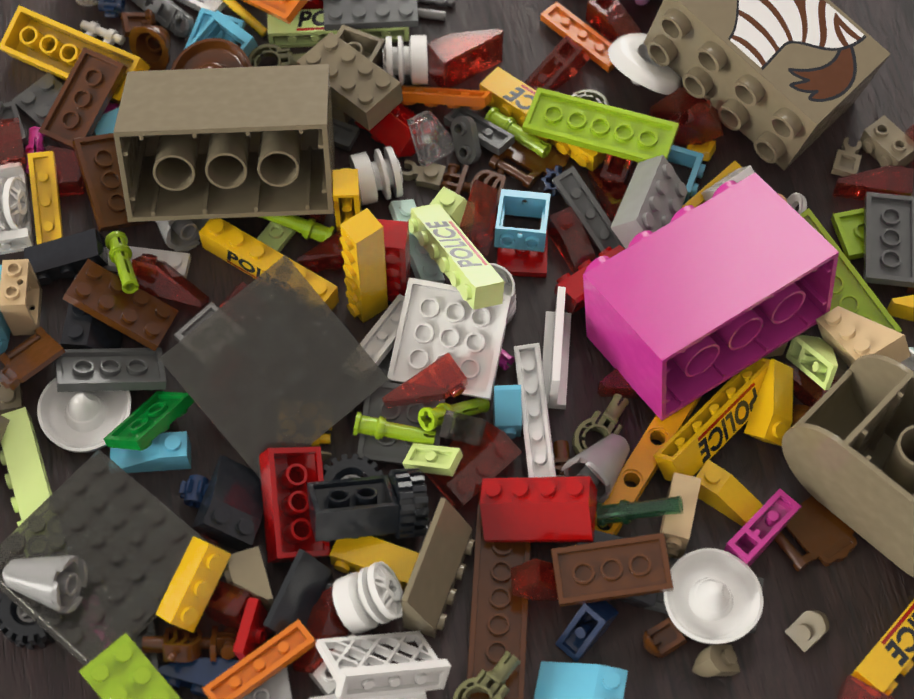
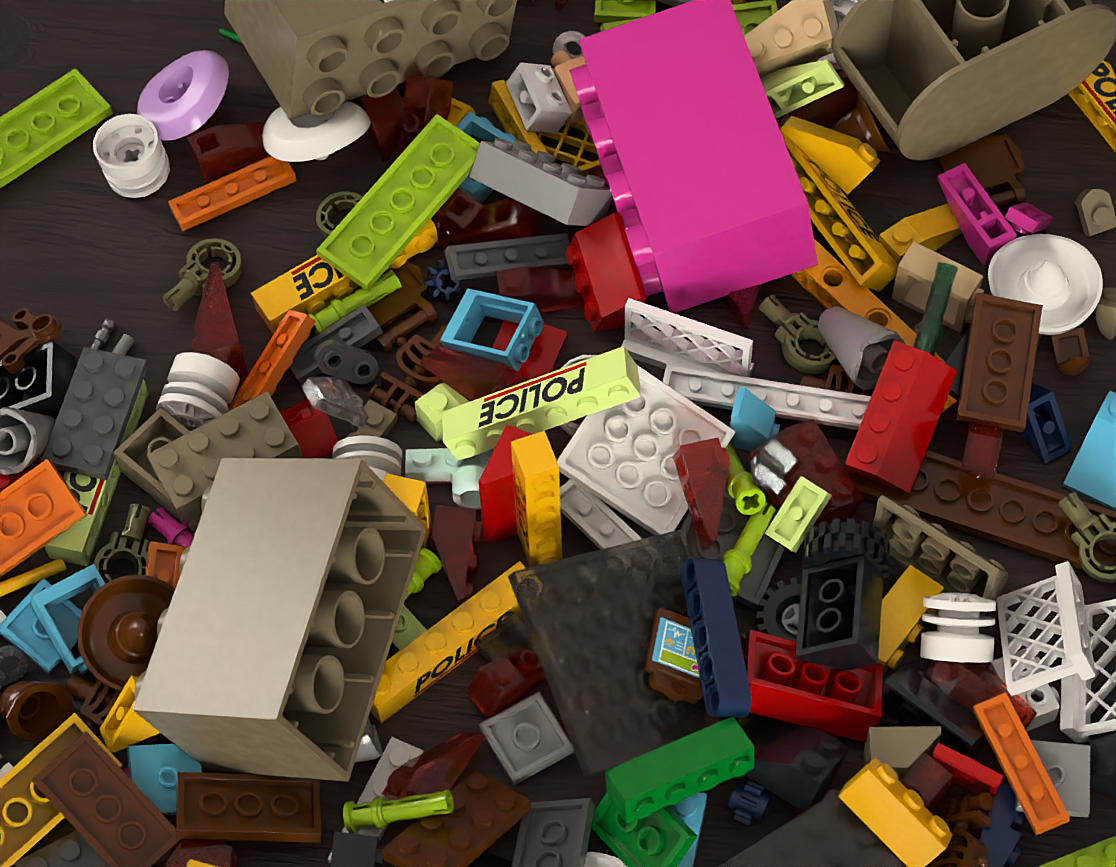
camera: 70 degrees left, 0 degrees up
(187, 423) = (679, 769): none -> green brick
(282, 405) = (673, 658): none -> piece
(299, 419) = (716, 638): none -> dark blue beam
(511, 33) = (194, 275): none -> olive pin
(558, 66) = (273, 231): clear red slope -> none
(775, 573) = (1027, 218): none -> dark pink plate

